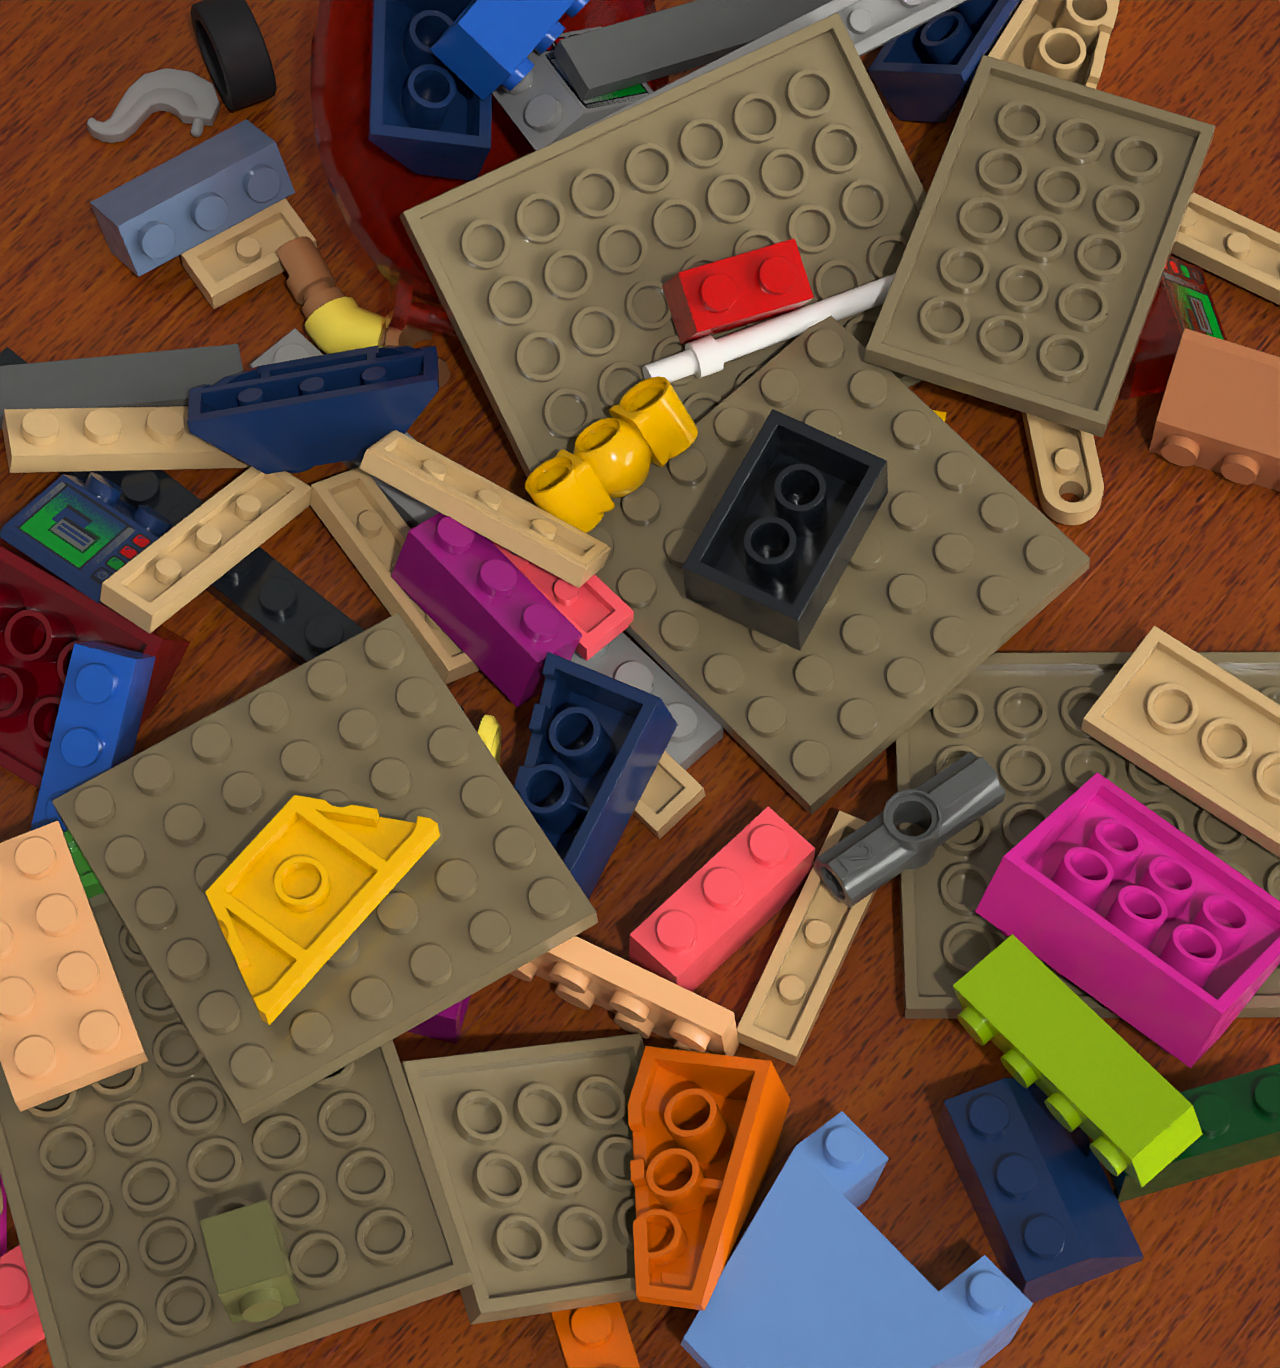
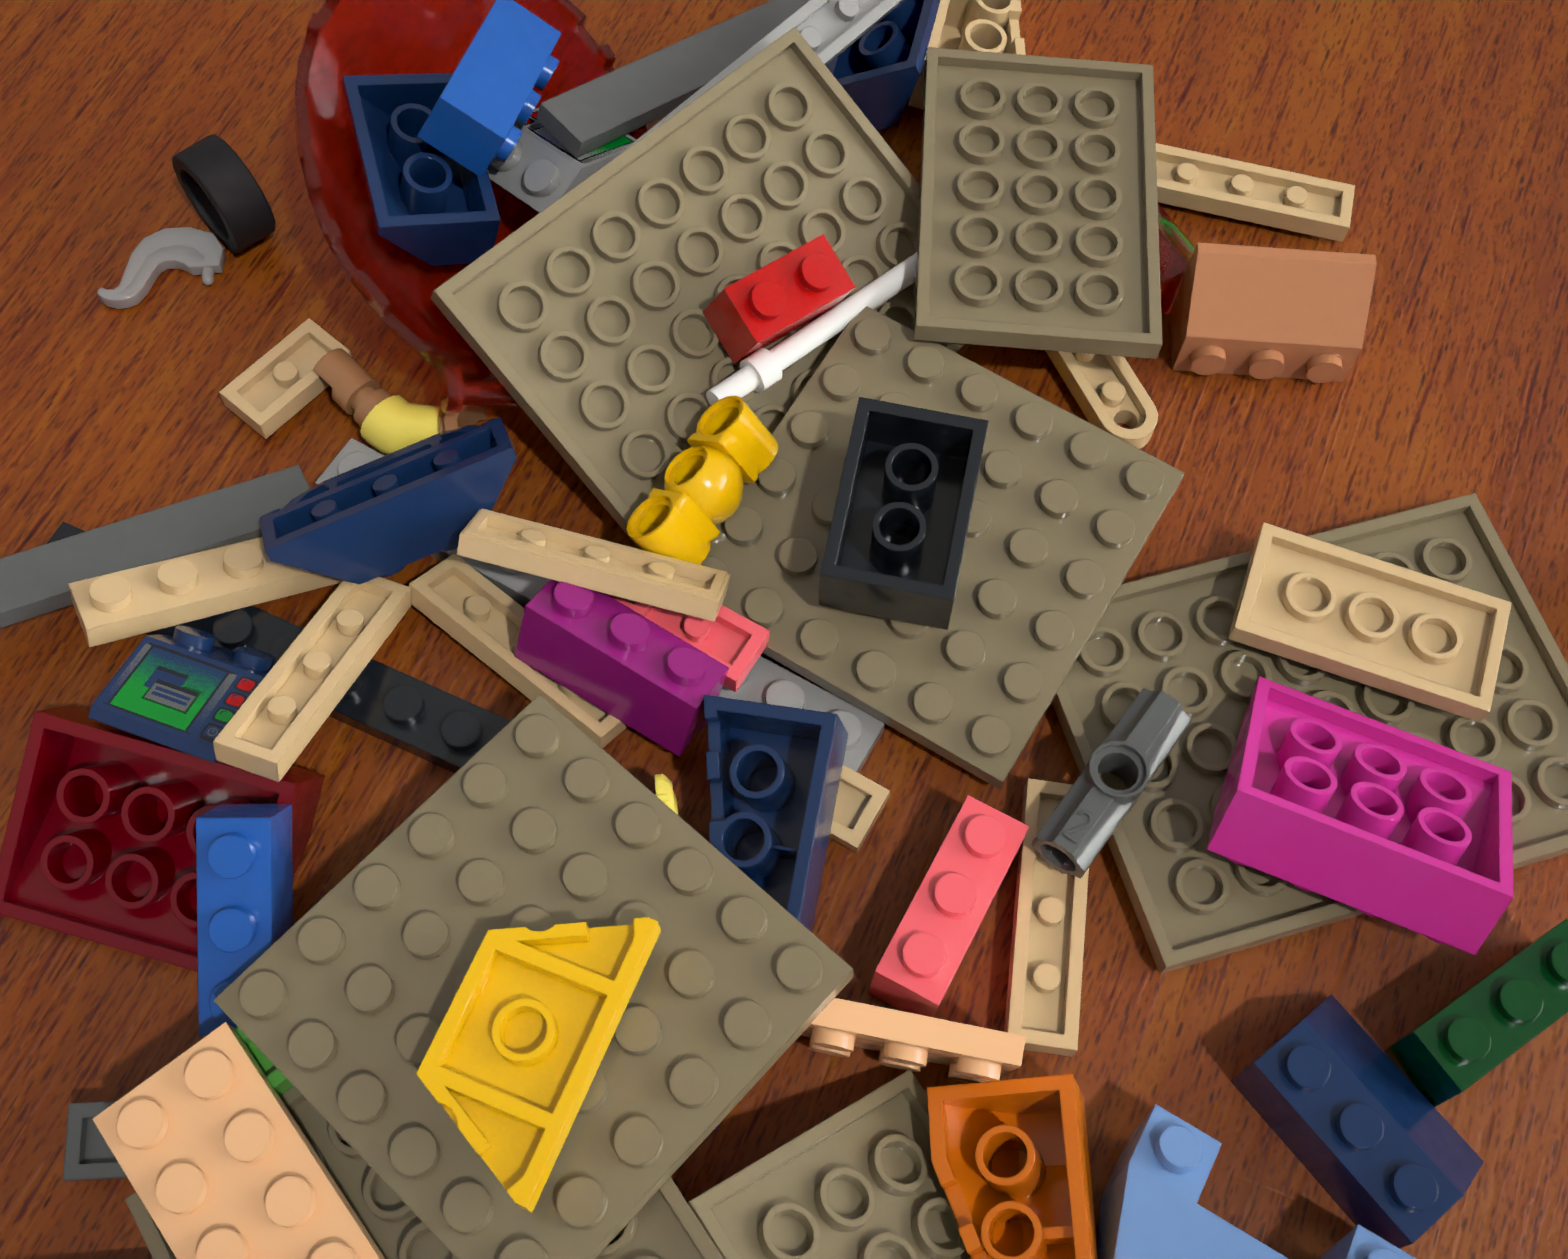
camera: 20 degrees left, 0 degrees up
(192, 197) = (217, 337): sand blue brick -> none
(1077, 1061) = (1380, 986): lime brick -> none

